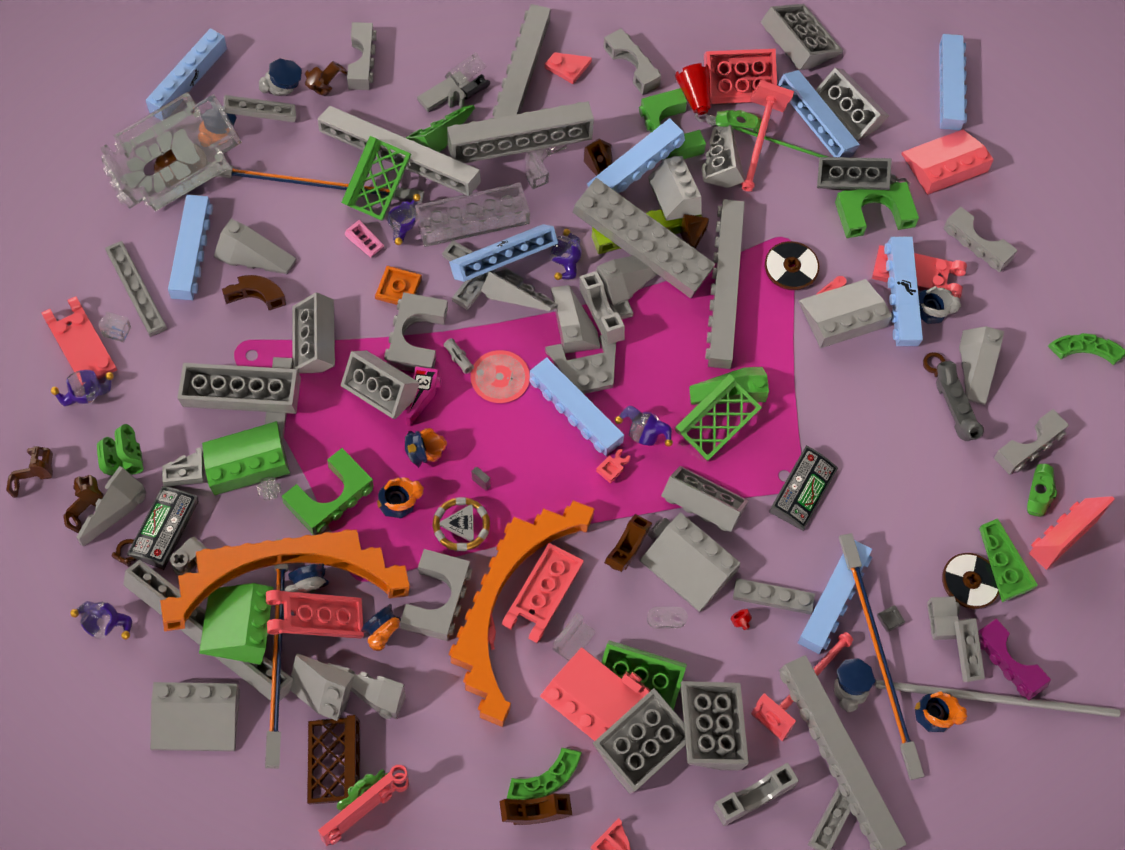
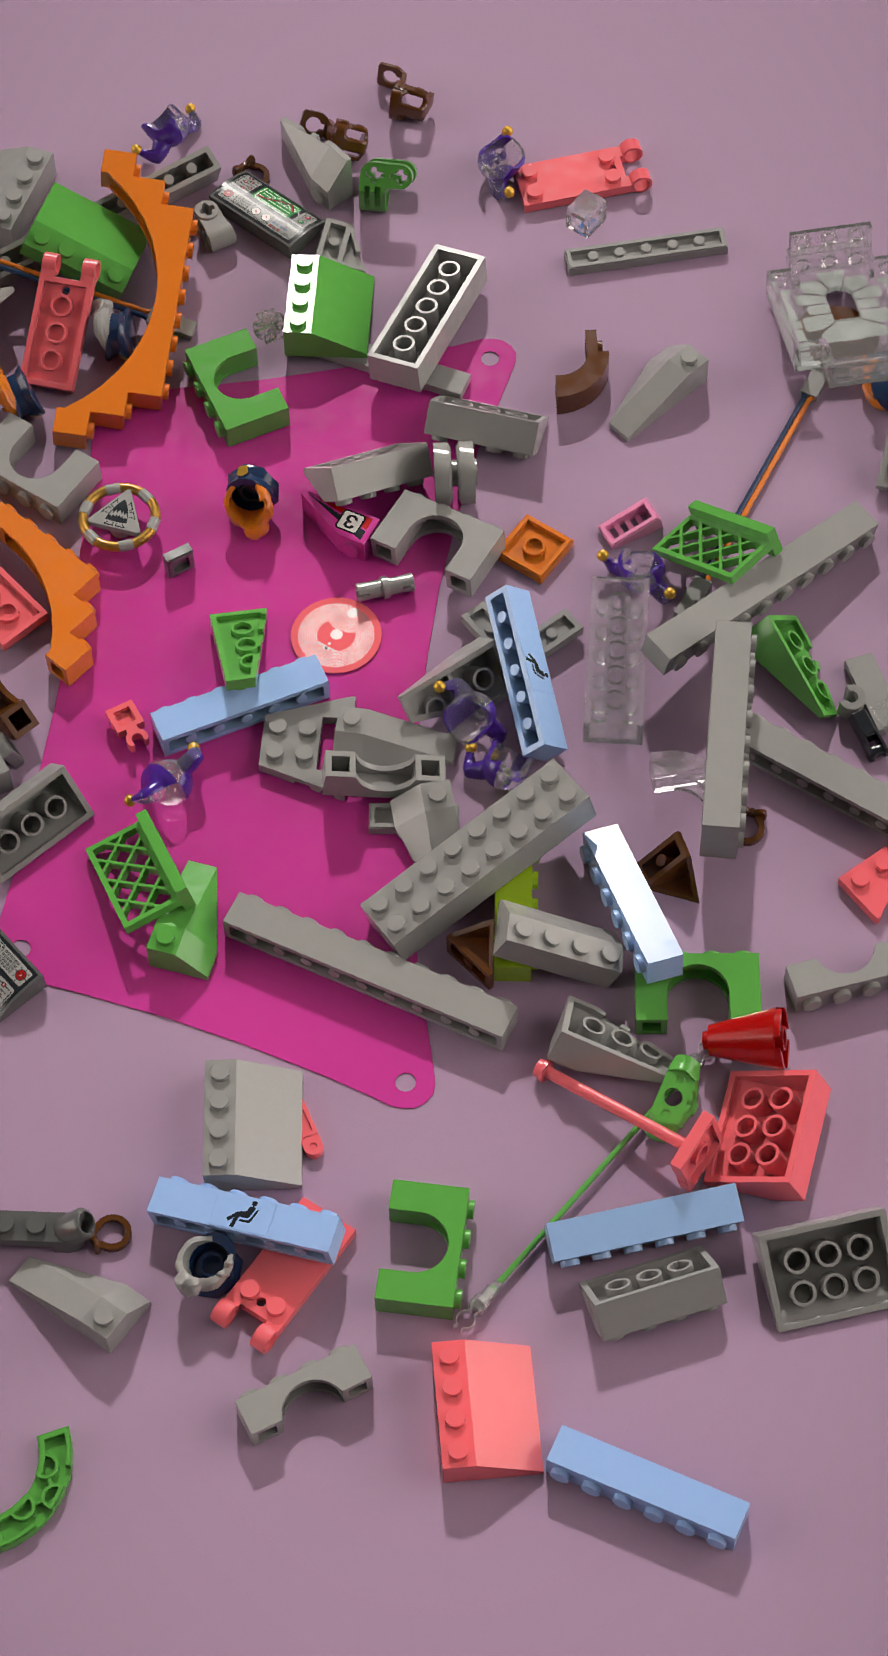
camera: 115 degrees right, 5 degrees down
(190, 247) = (687, 316): light blue brick -> none
(366, 332) = (455, 473): none -> light grey wheel
(399, 496) = (193, 459): piece -> none
(532, 420) = (239, 645): none -> bright green wing
(542, 274) = (470, 713): none -> clear piece
(790, 253) = (362, 1104): piece -> none
(854, 173) = (497, 1231): dark grey slope -> none

